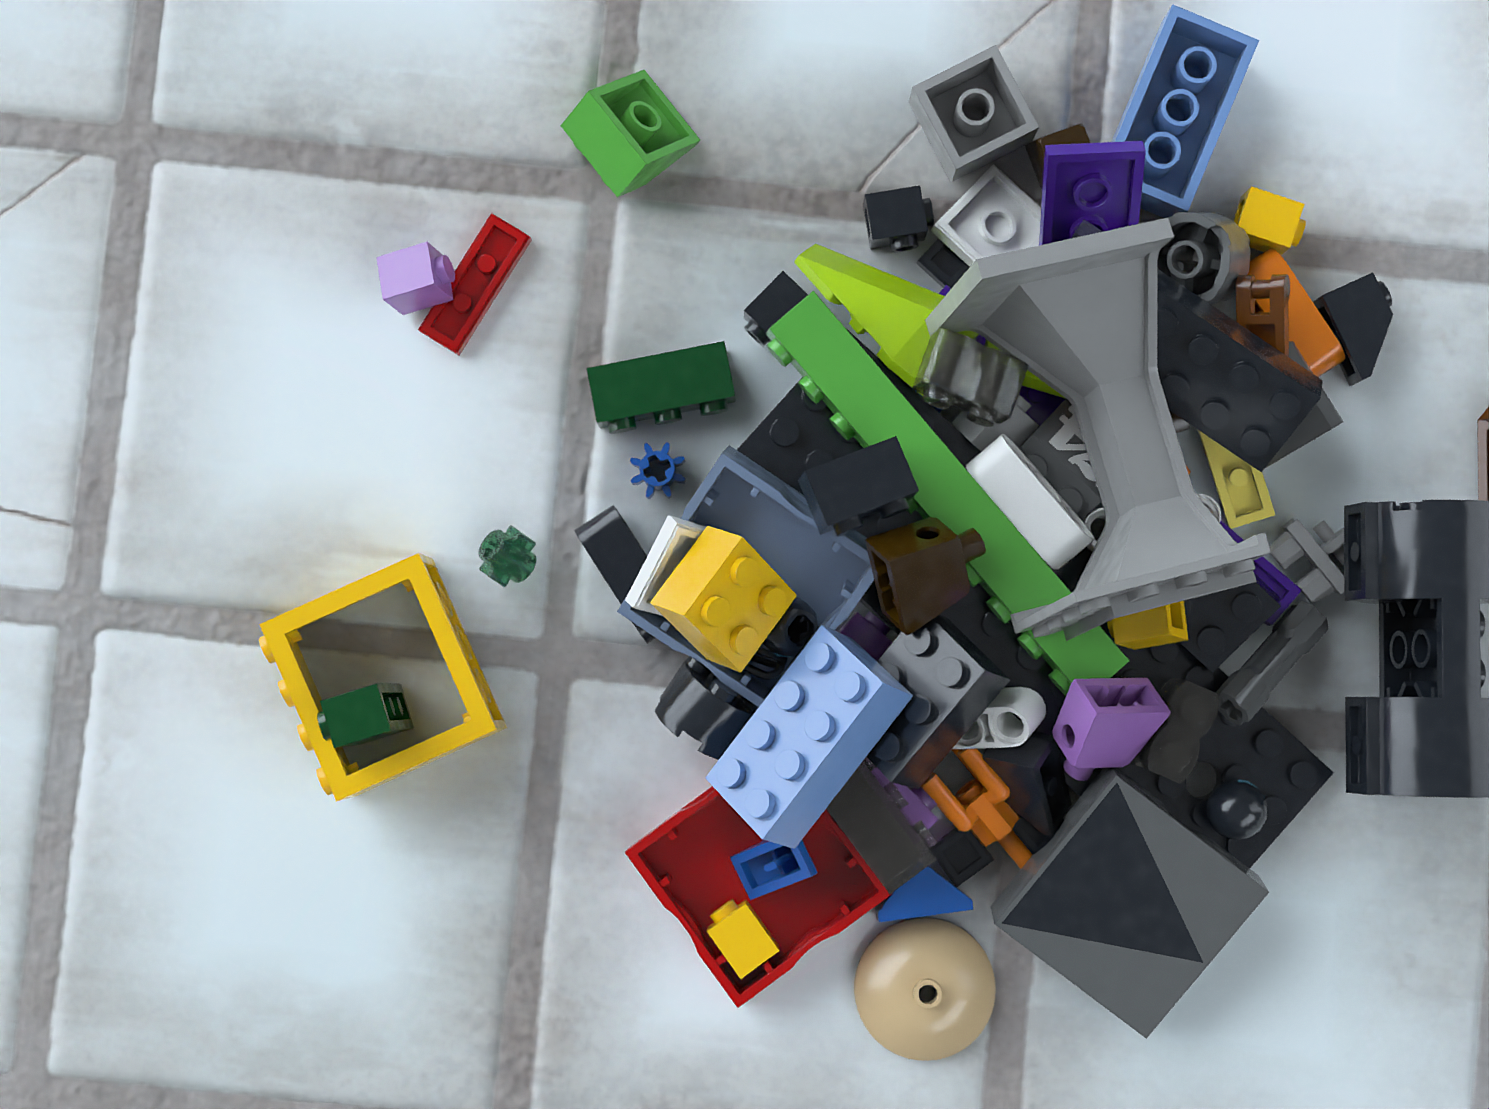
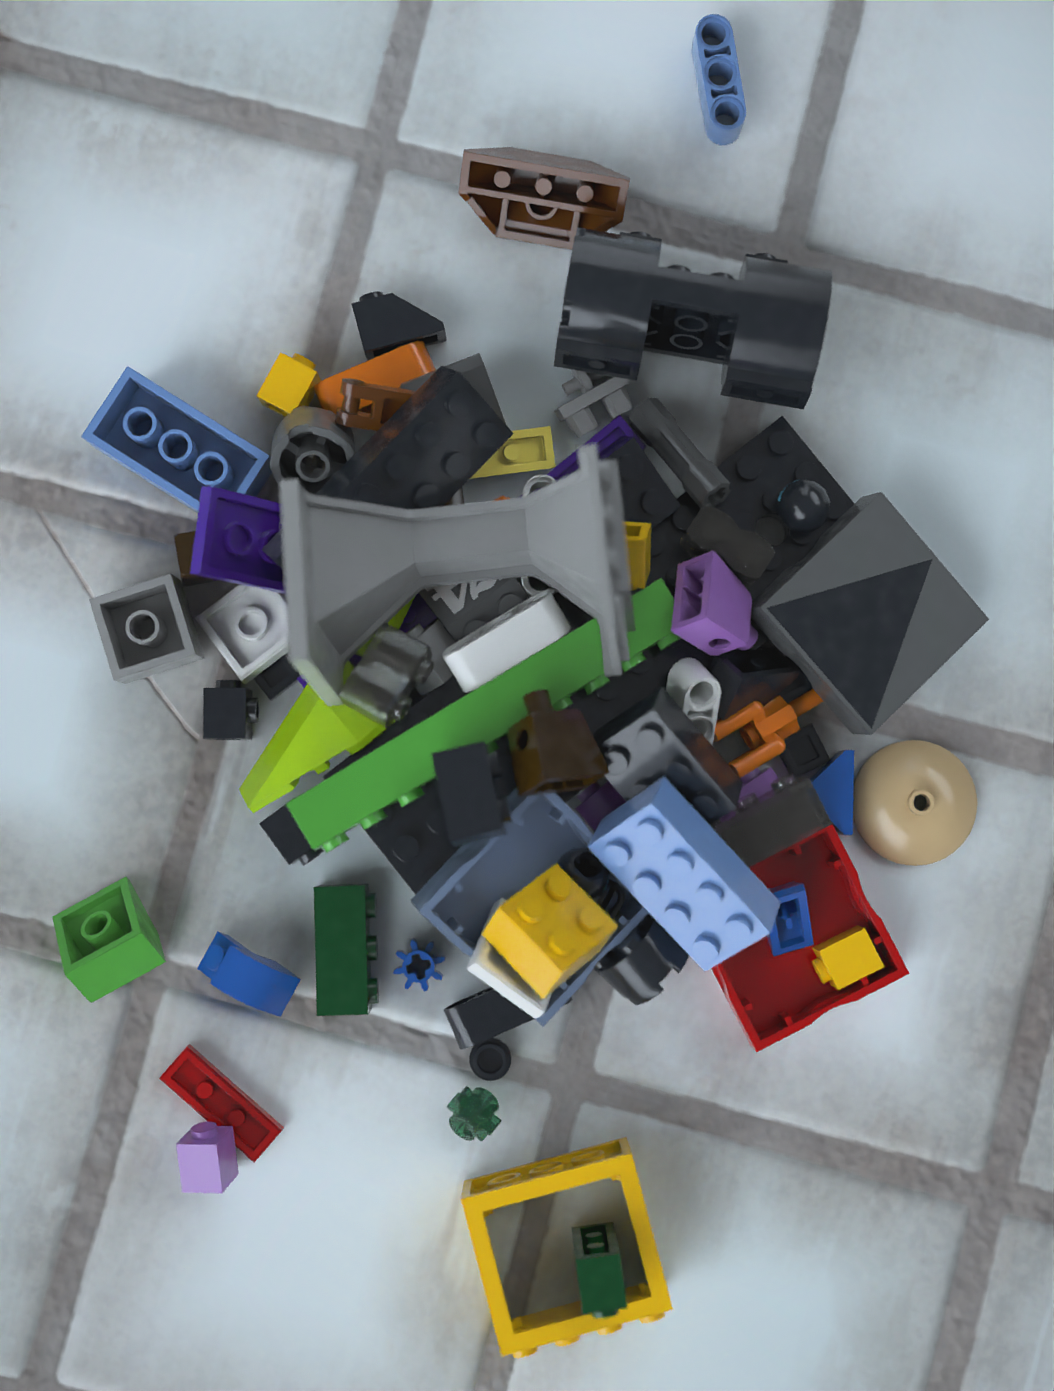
camera: 85 degrees left, 0 degrees up
(568, 565) = (490, 1059): none -> black plate
(616, 288) = (248, 976): none -> blue brick

